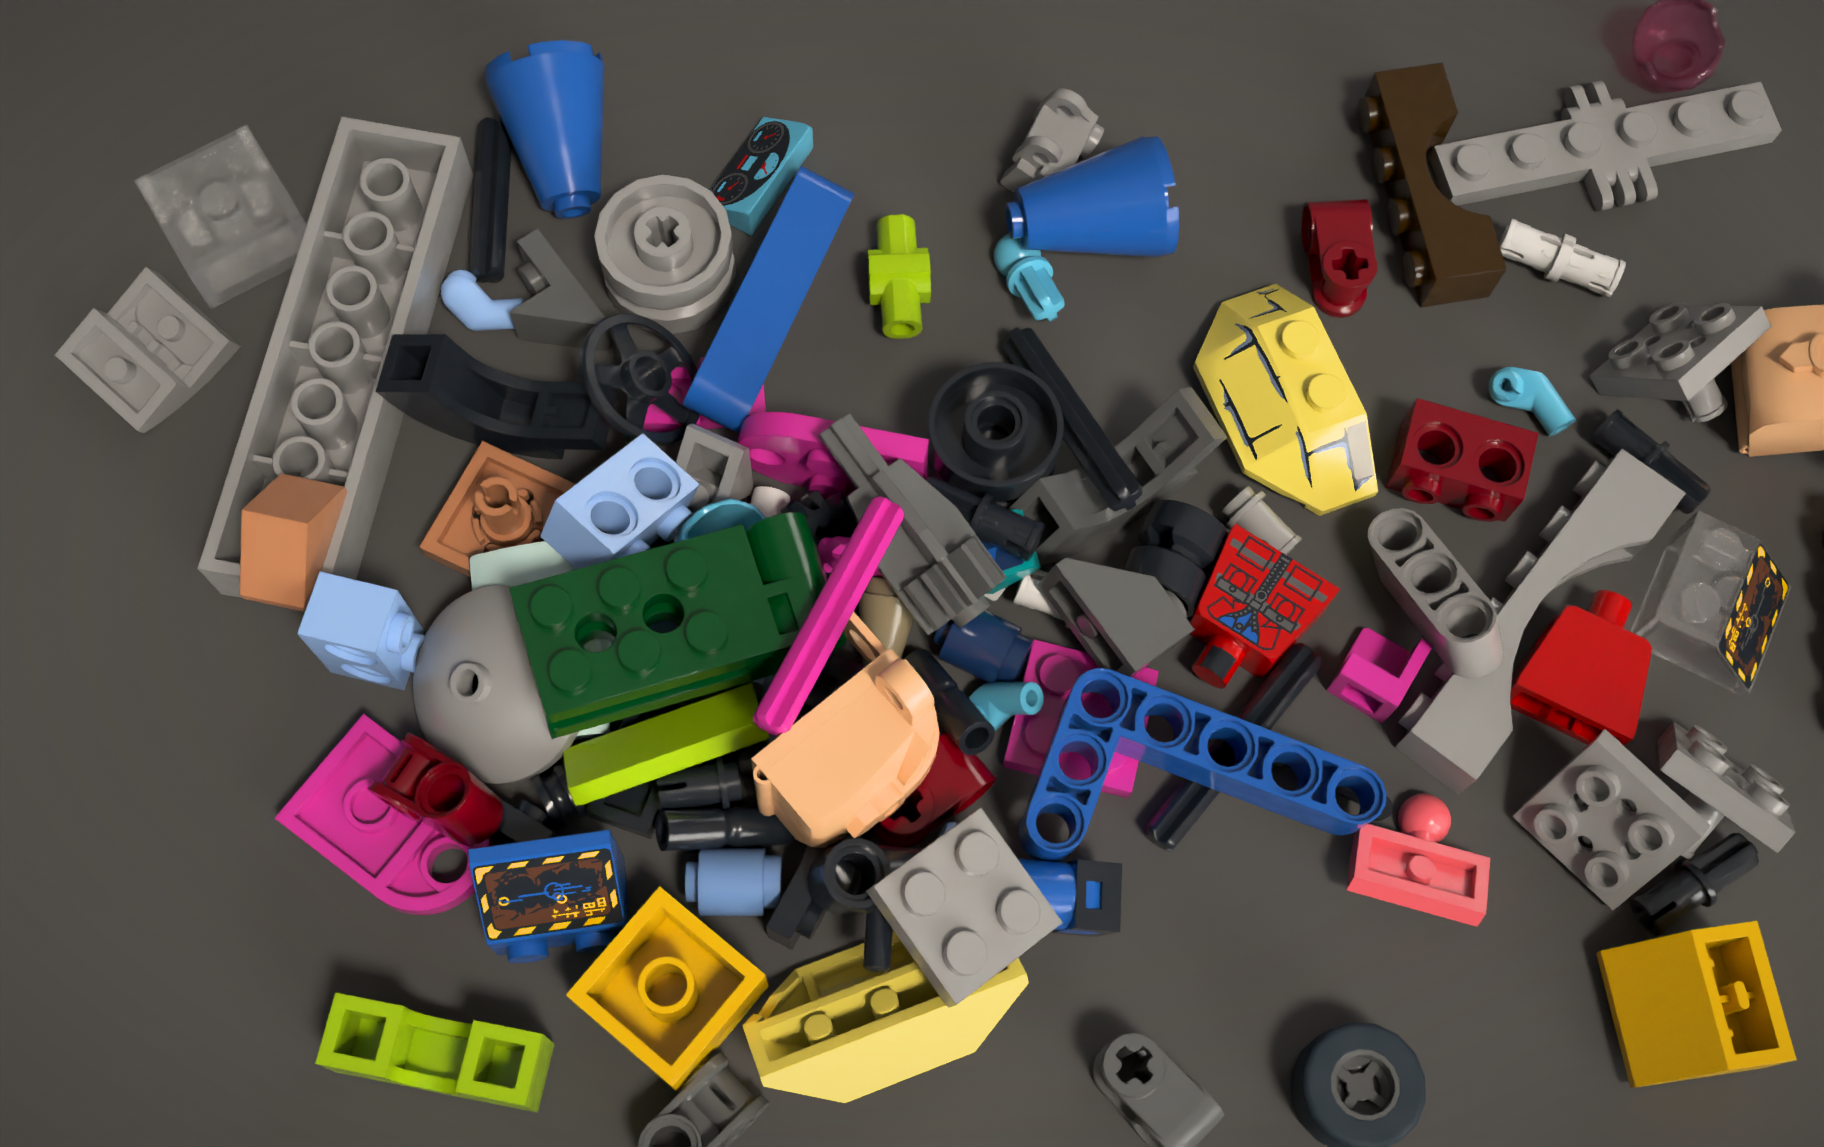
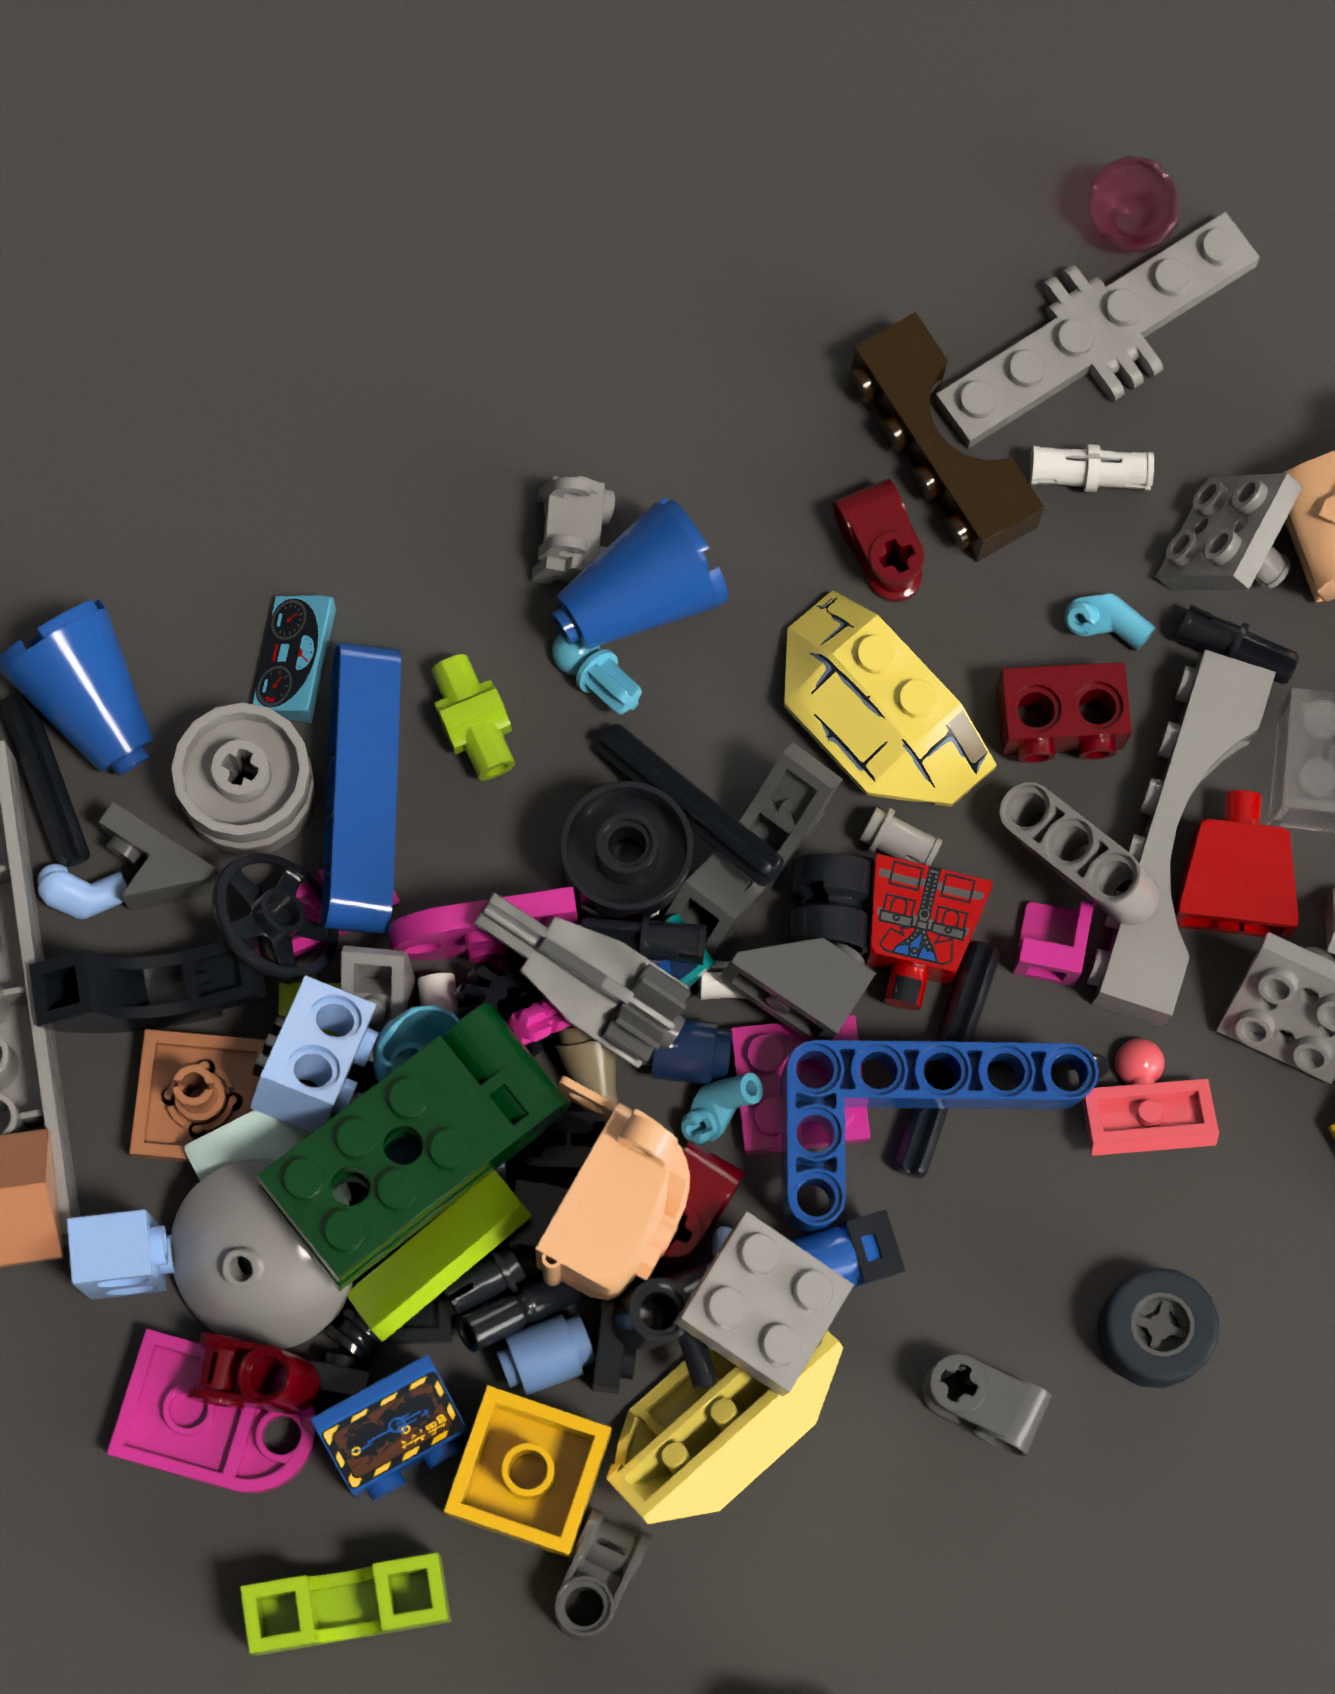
camera: 20 degrees left, 5 degrees up
(828, 617) = (552, 1092): dark pink axle -> none
(953, 707) = (689, 1126): black piece -> none

